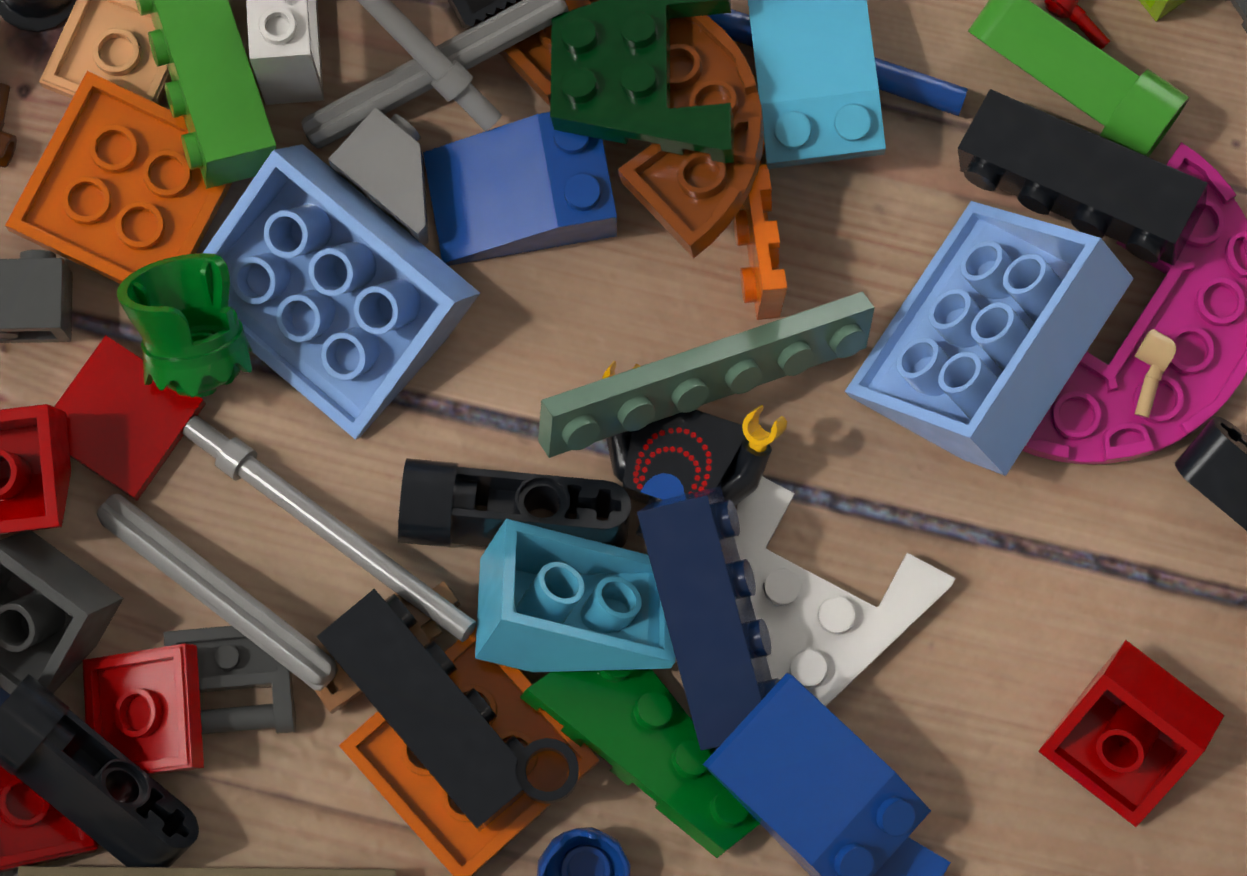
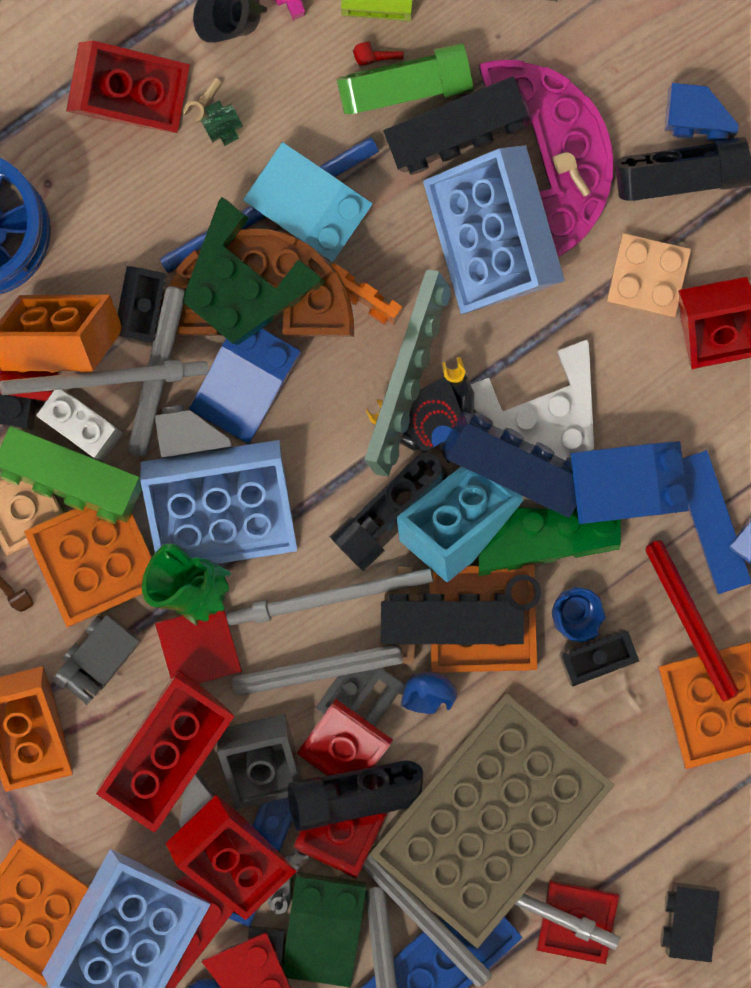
camera: 40 degrees left, 10 degrees up
(307, 764) = (427, 691): none -> blue hair
(1108, 589) = (648, 275): none -> light nougat plate

